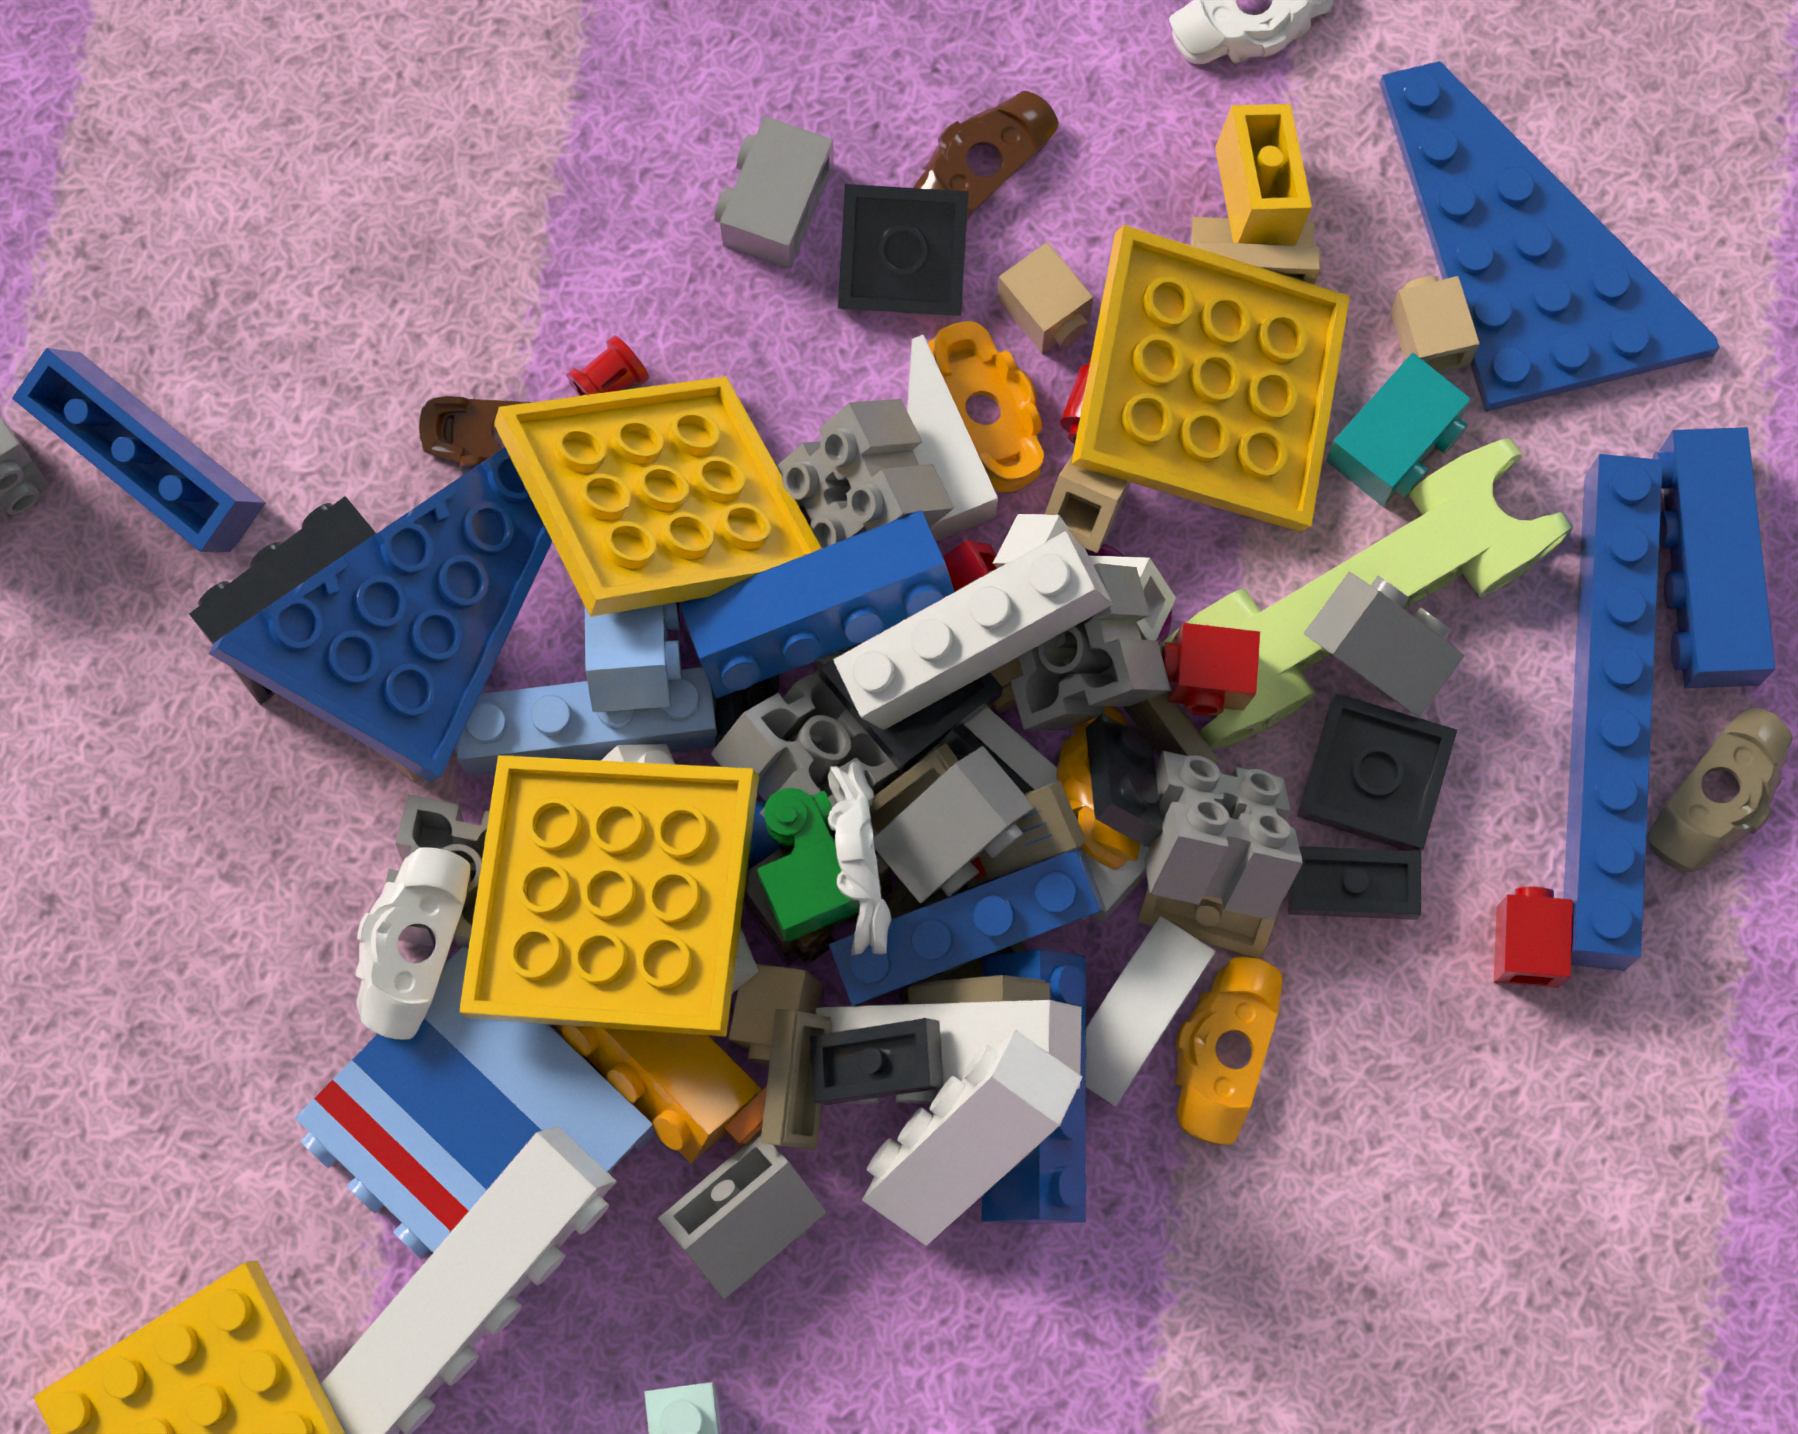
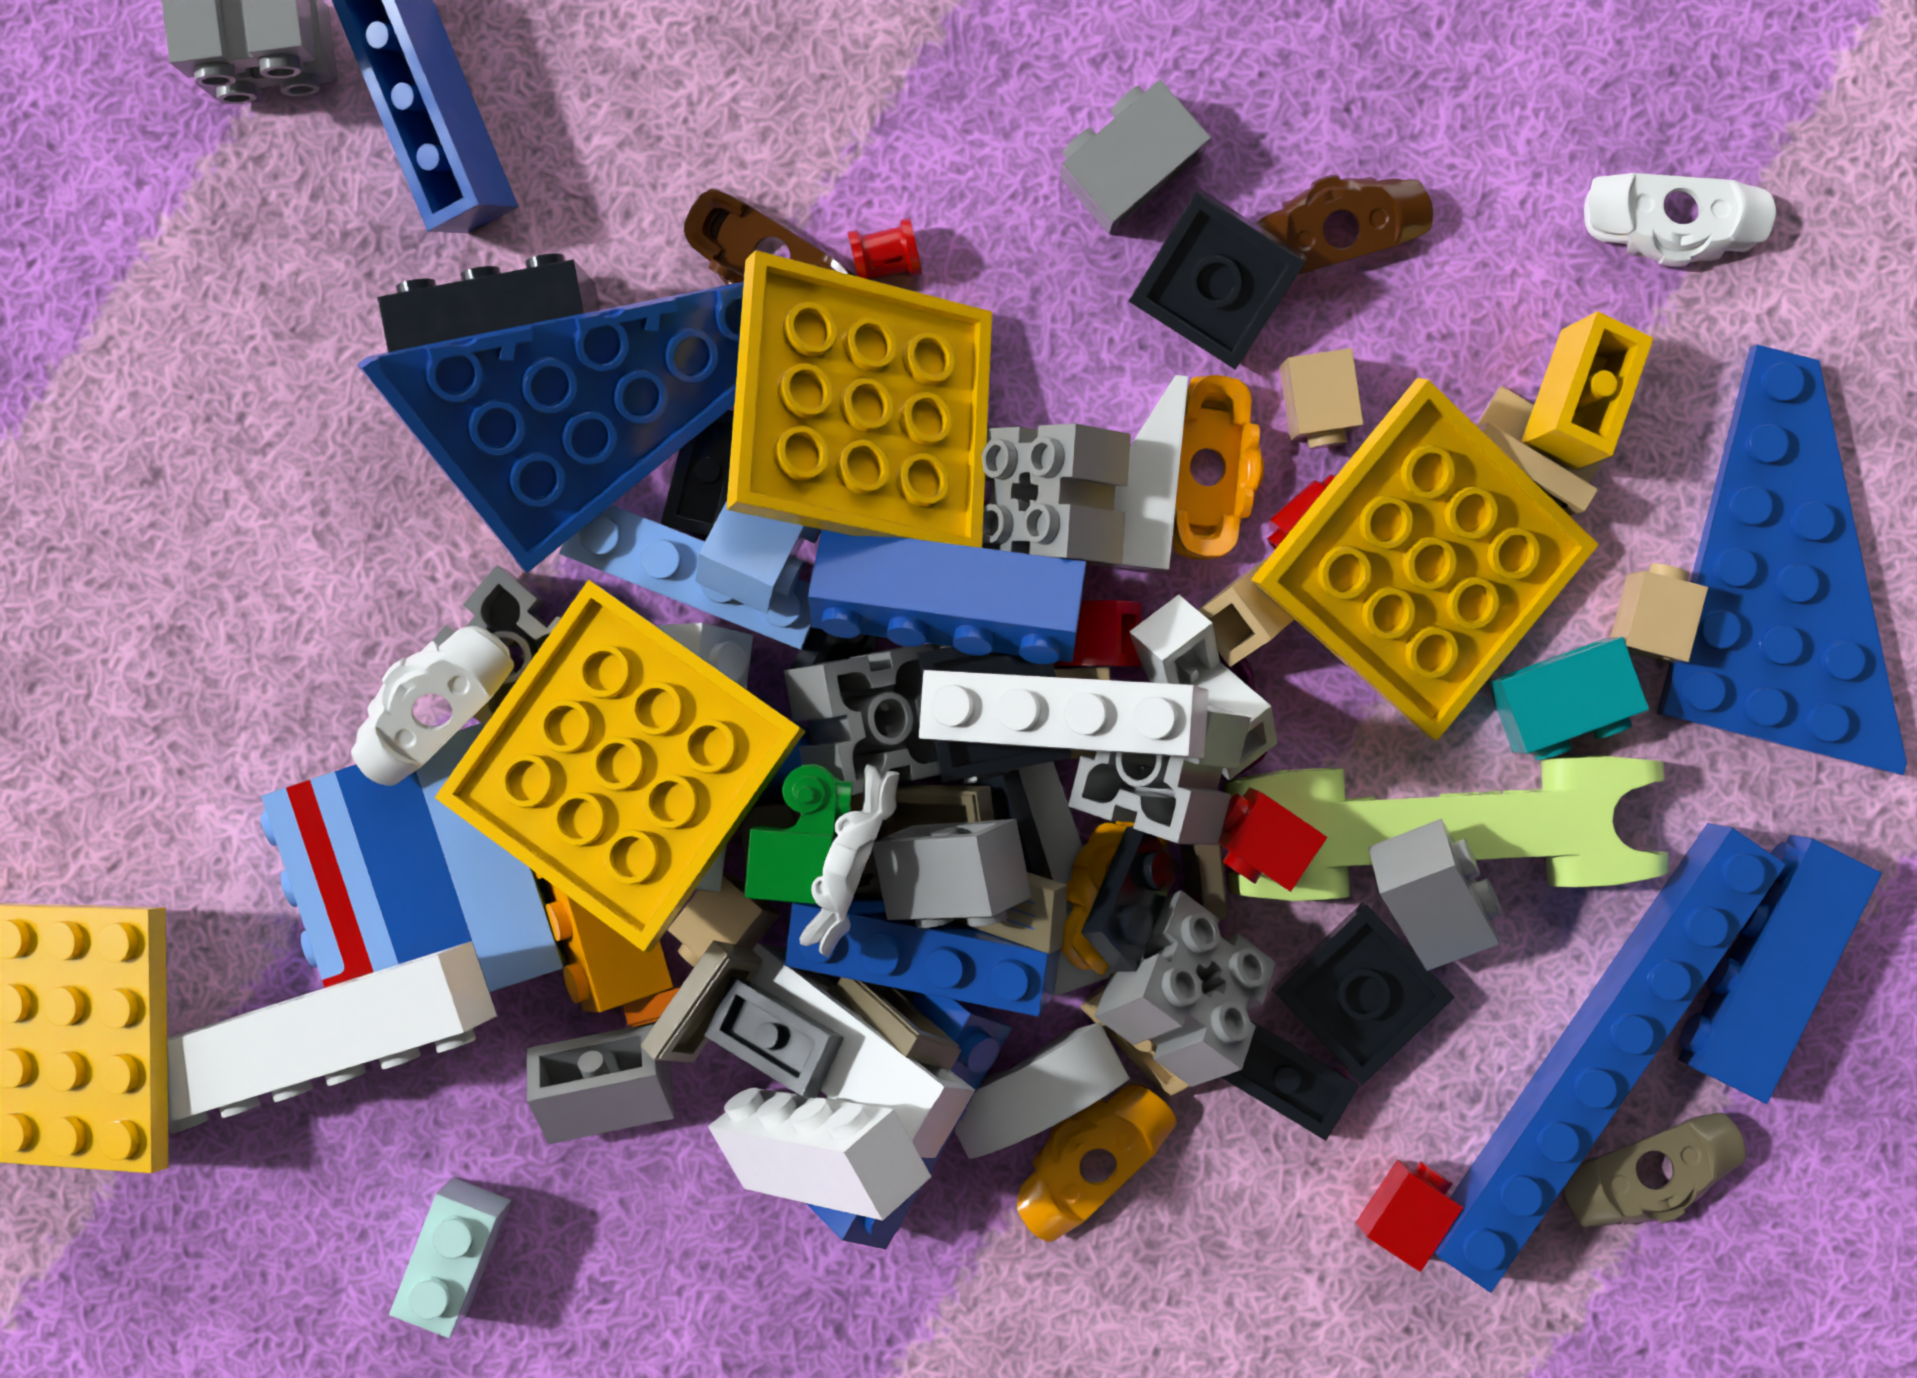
camera: 30 degrees right, 15 degrees up
(552, 631) = (701, 479): none -> black plate

